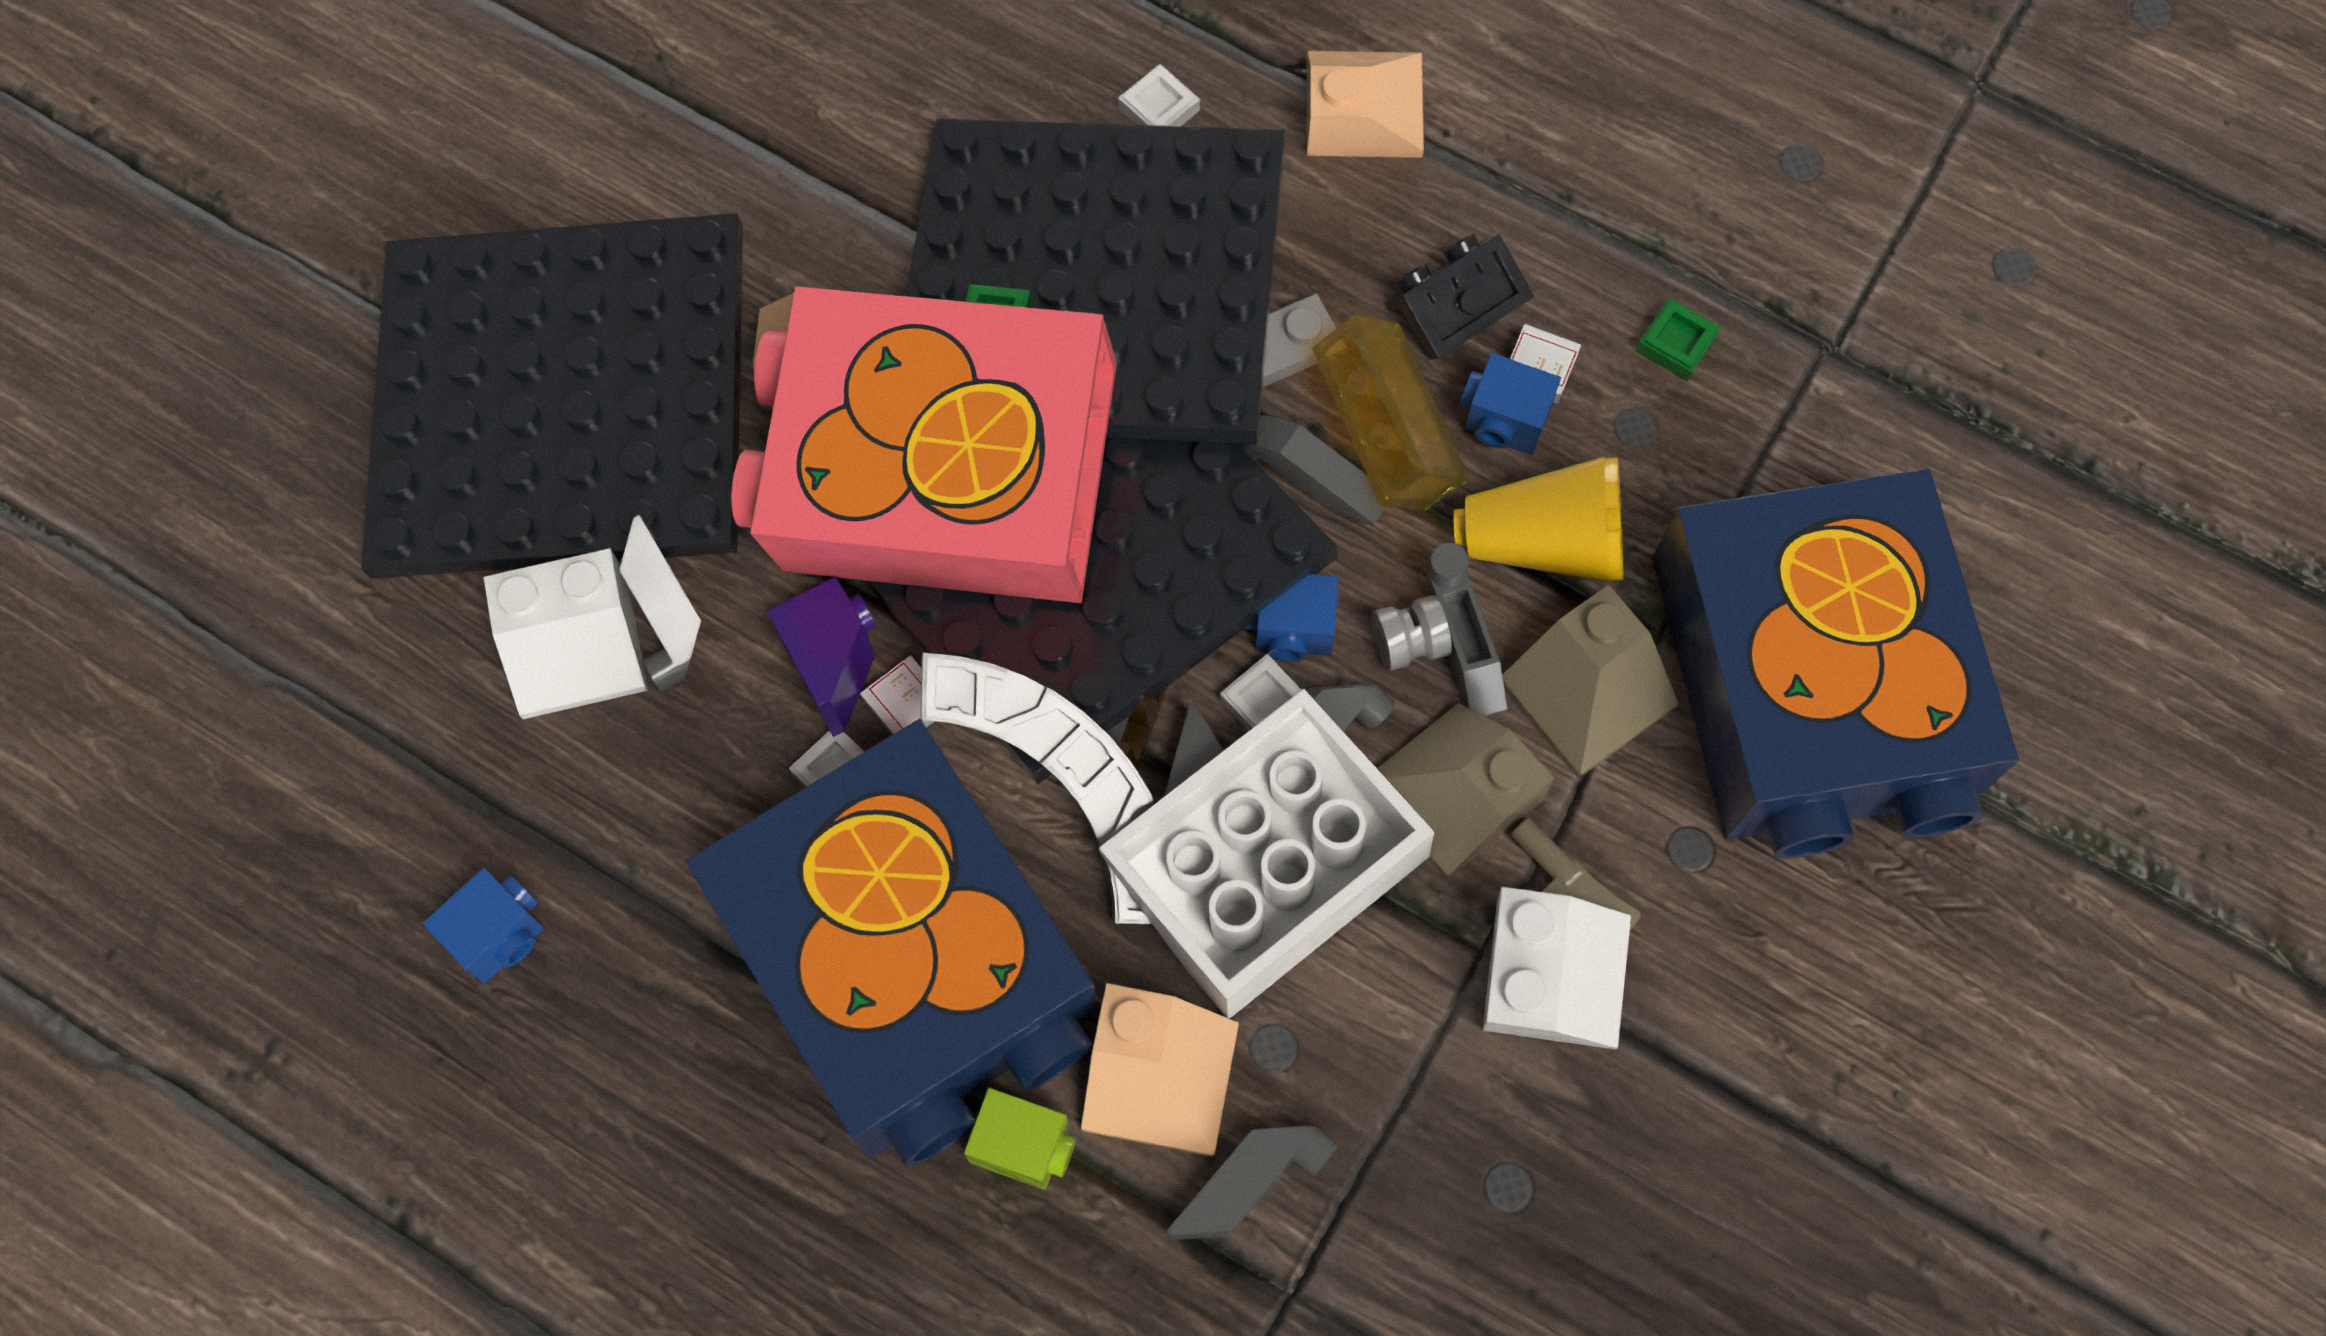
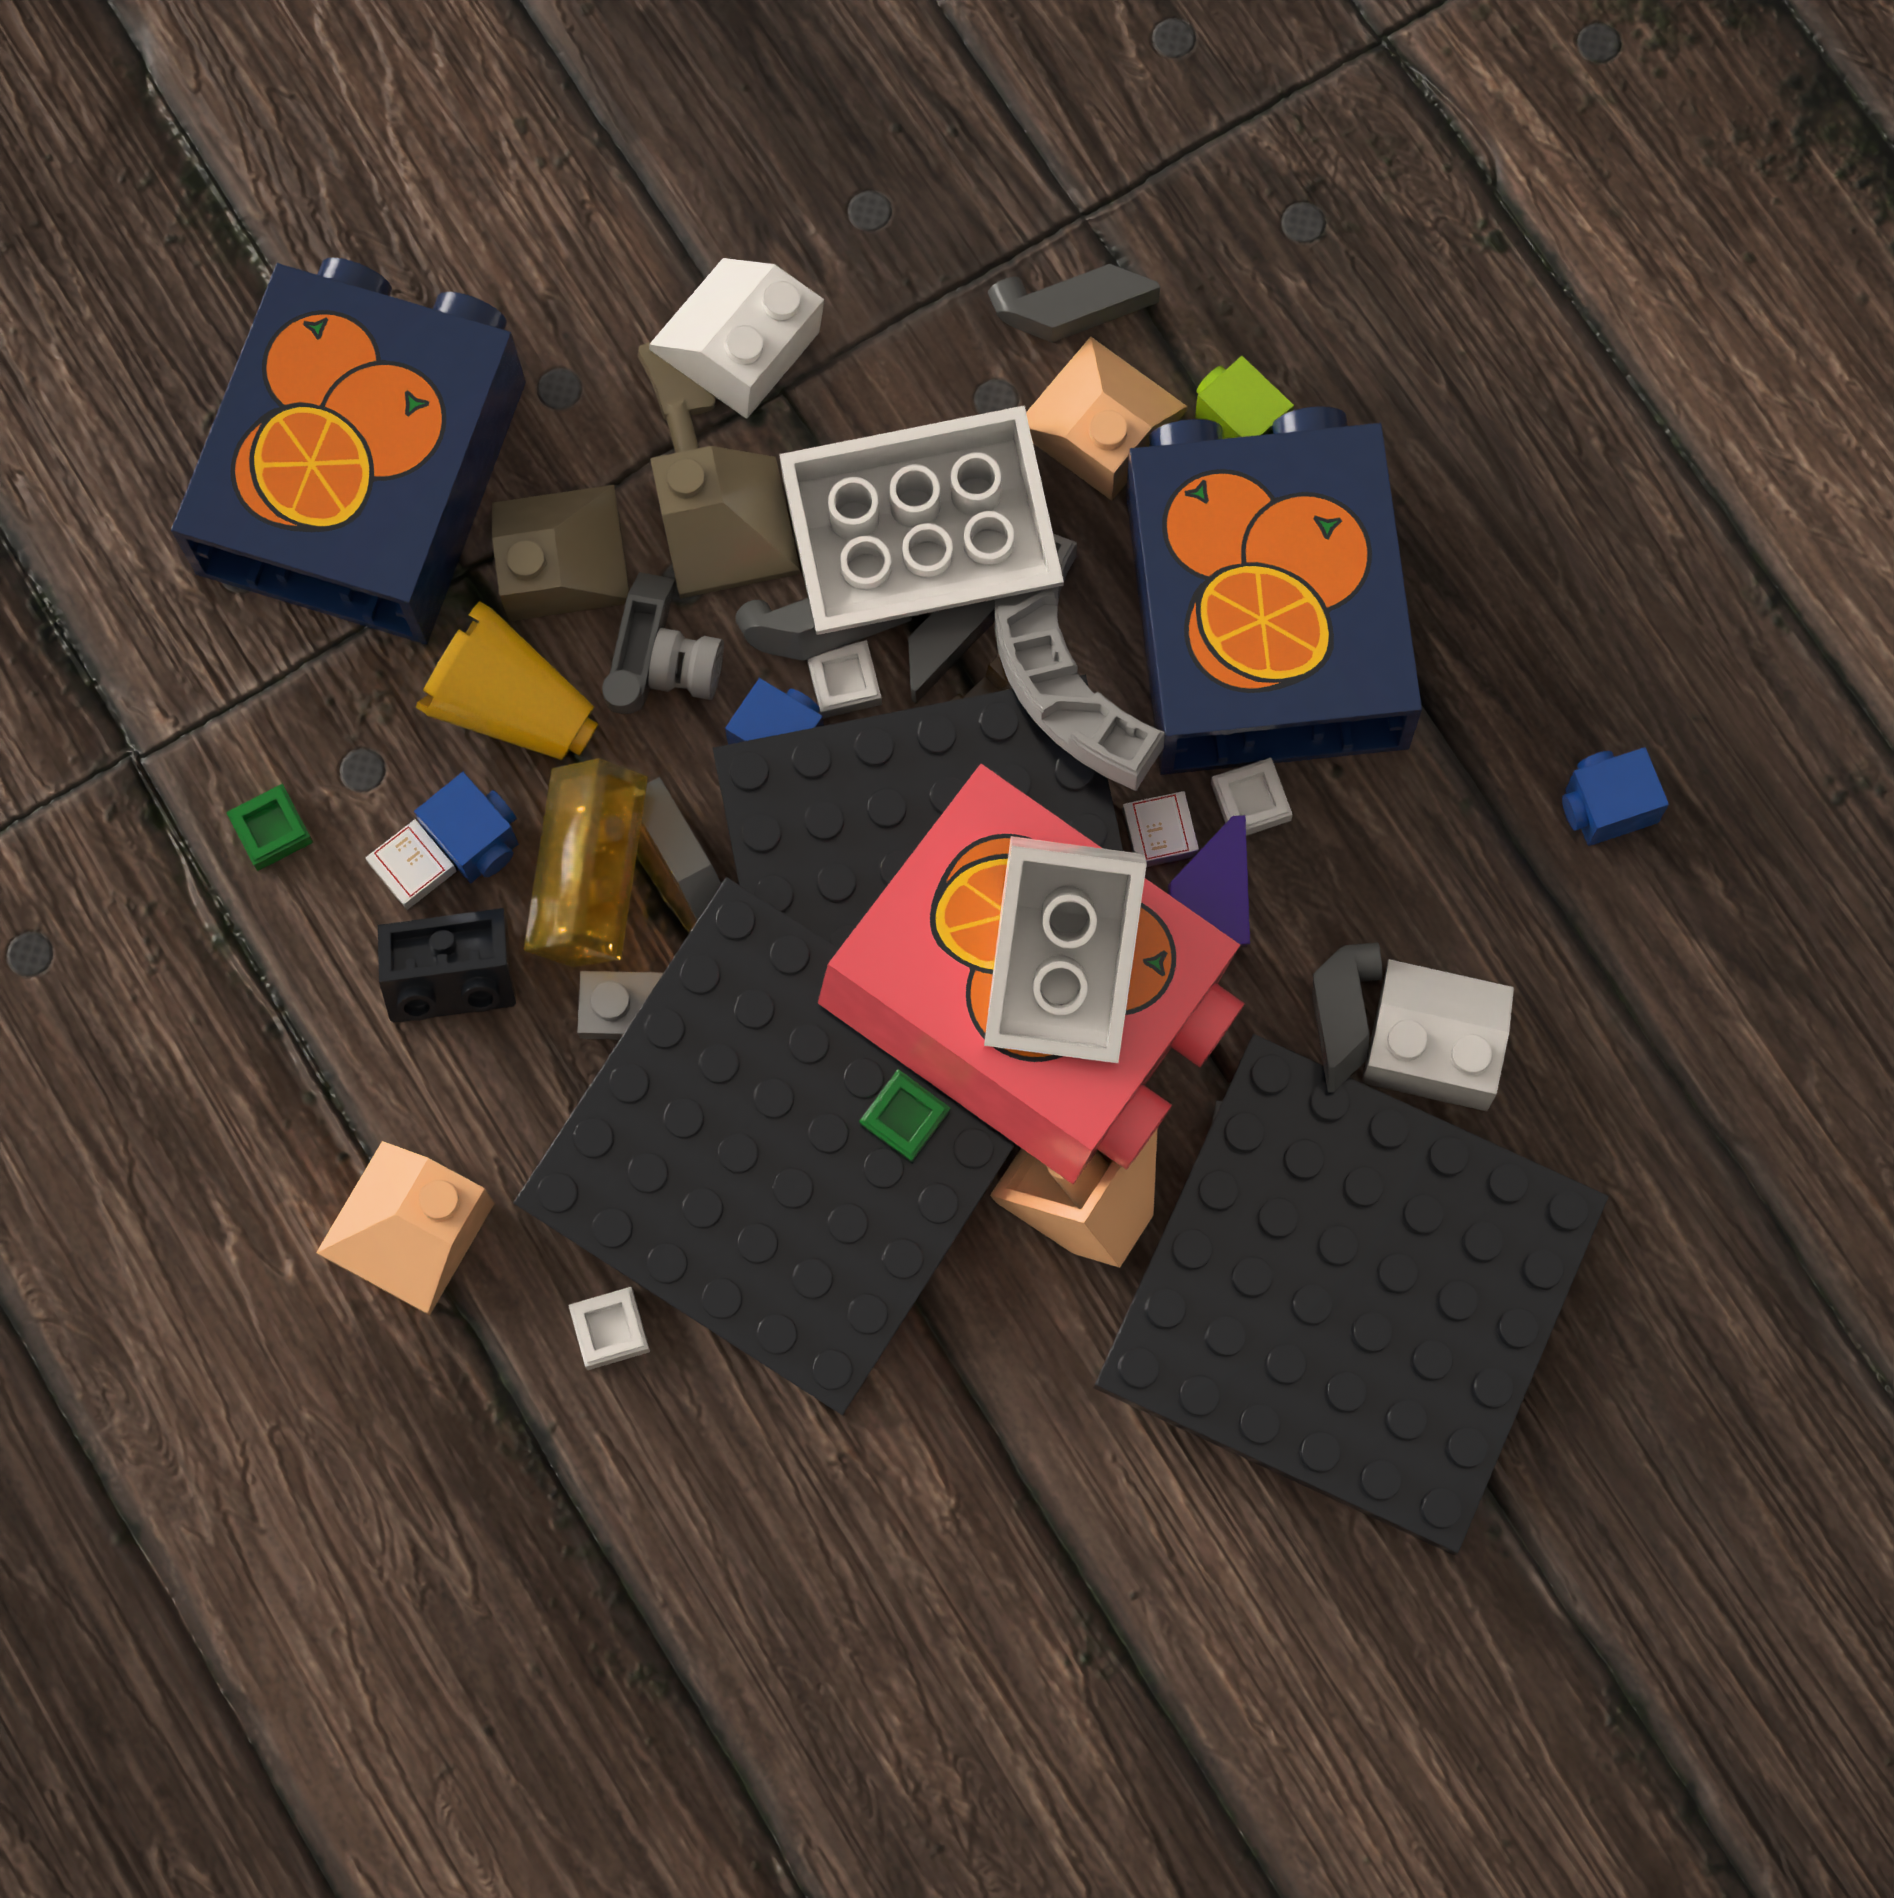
camera: 150 degrees left, 5 degrees up
(899, 427) = (1065, 949): none -> white slope

